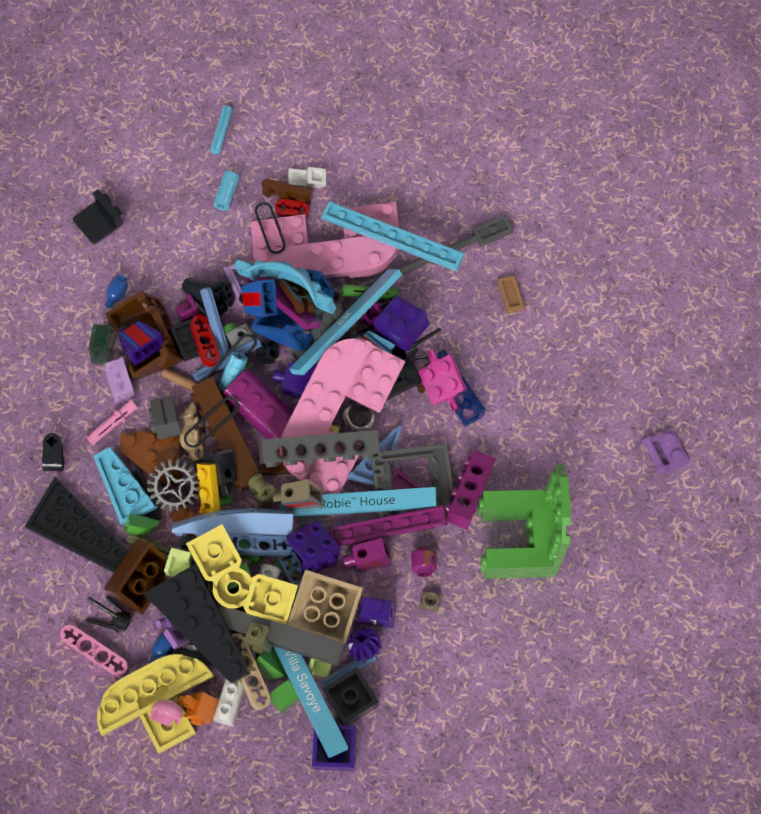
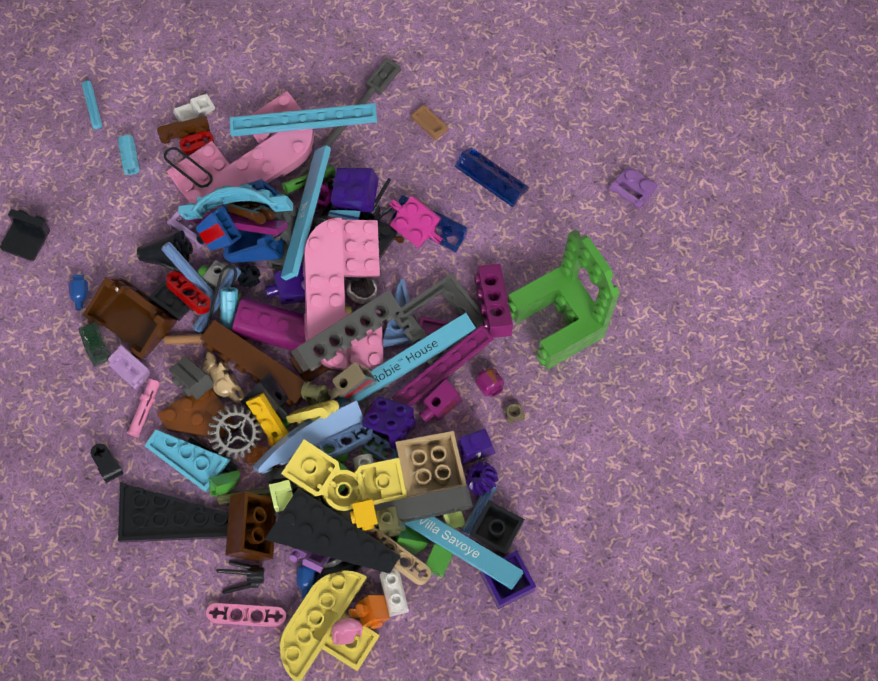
camera: 30 degrees left, 0 degrees up
(139, 341) = (128, 323): dark purple torso -> none
(187, 310) = (155, 274): magenta panel -> none
(217, 427) = (228, 358): black piece -> none
(238, 618) = (364, 514): none -> yellow brick
(249, 504) = (313, 412): none -> light yellow plate
(536, 374) = (491, 176): none -> clear blue fence

